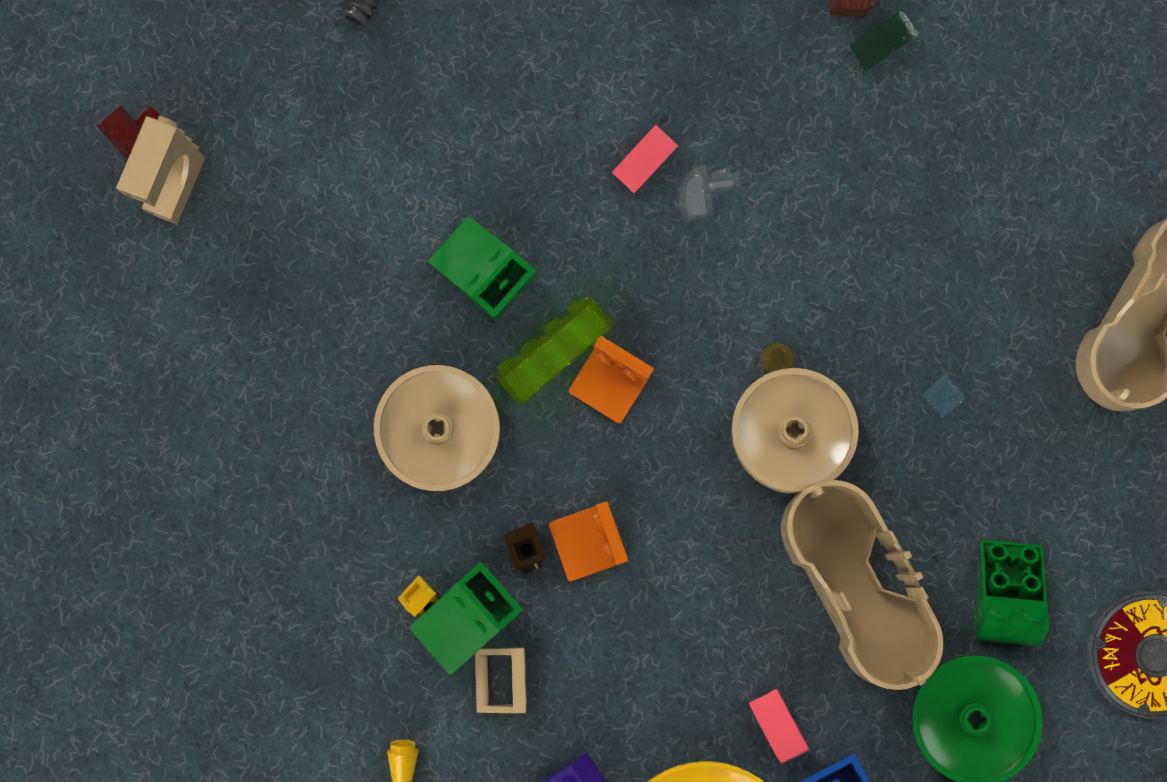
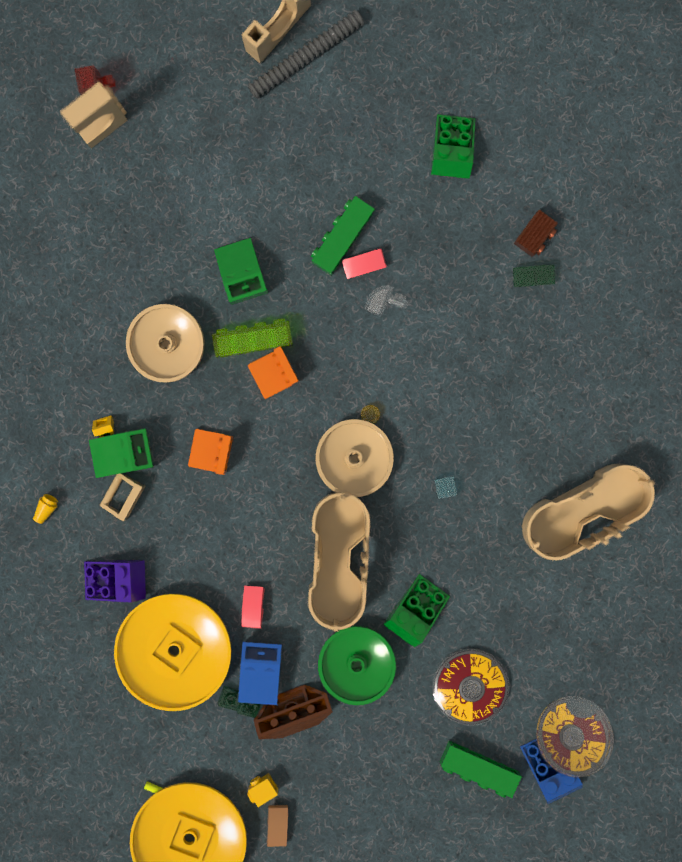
camera: 30 degrees right, 5 degrees up
(520, 536) = (168, 439): dark brown brick -> none
(592, 139) = (342, 235): none -> green brick

